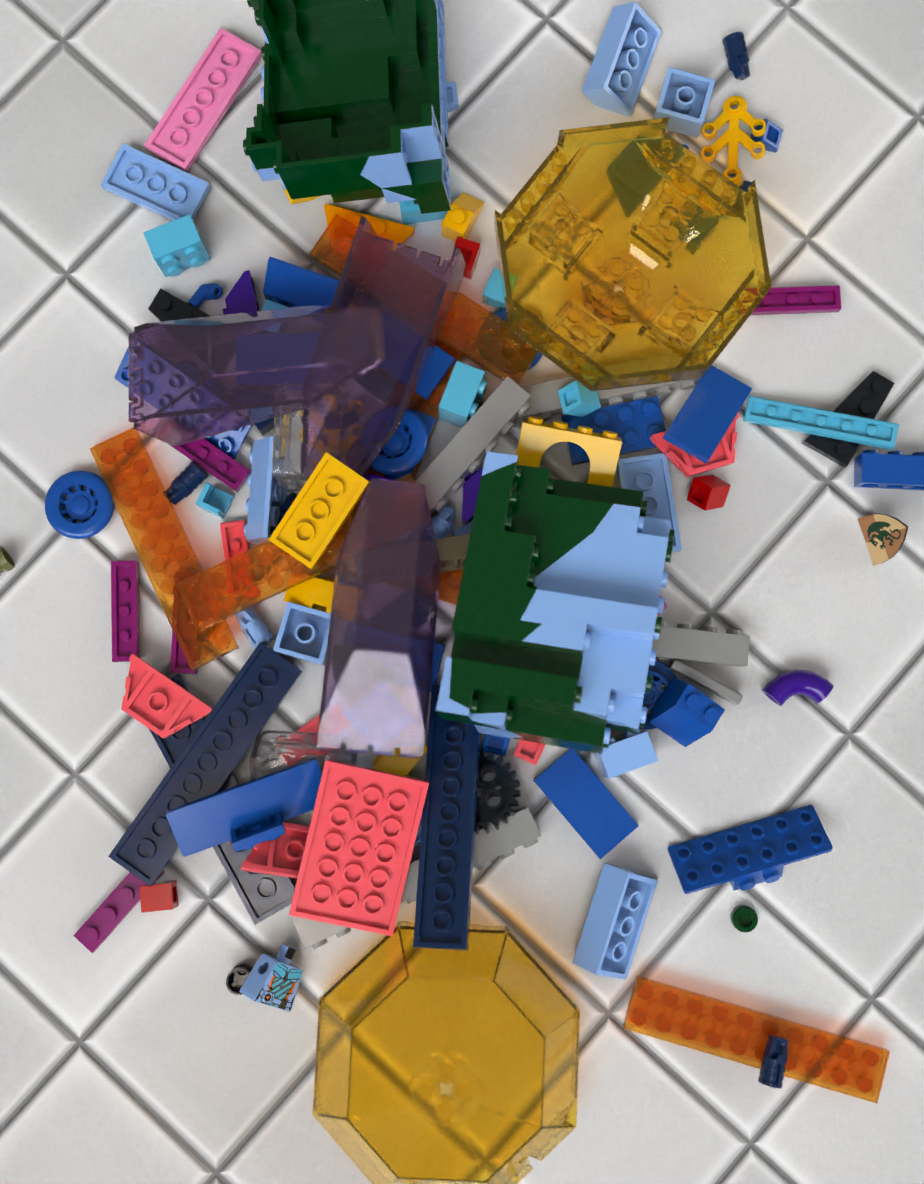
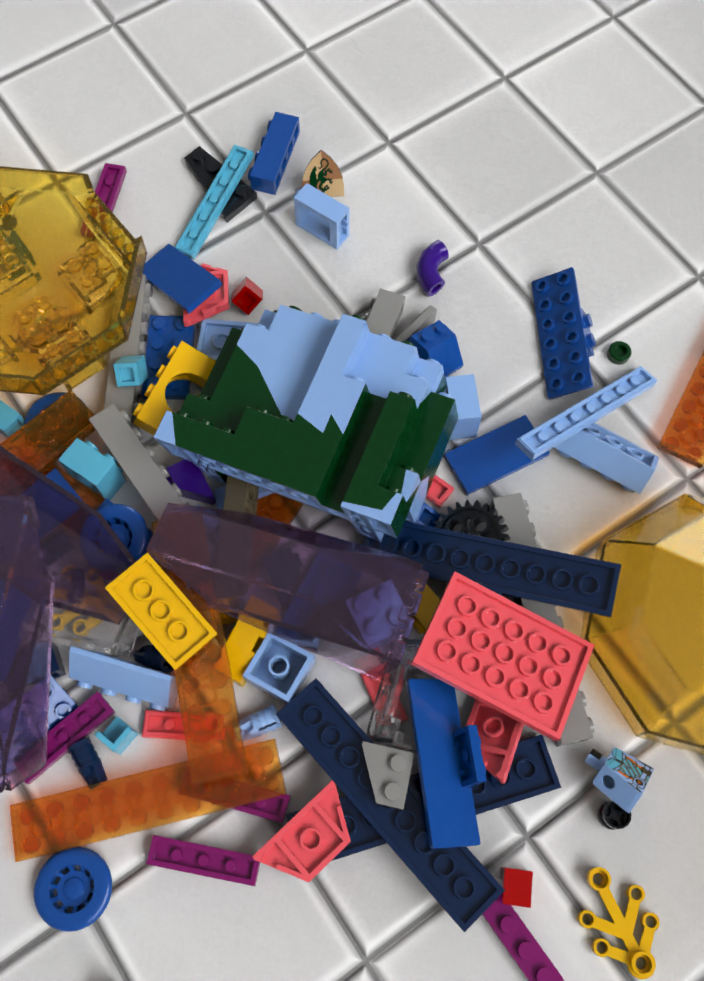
camera: 75 degrees left, 15 degrees down
(147, 1000) = (622, 926): none -> yellow plant
(227, 759) = (389, 773): none -> light grey wing
(648, 892) = (585, 413): none -> light blue tile
(828, 547) = (321, 215): none -> light blue window

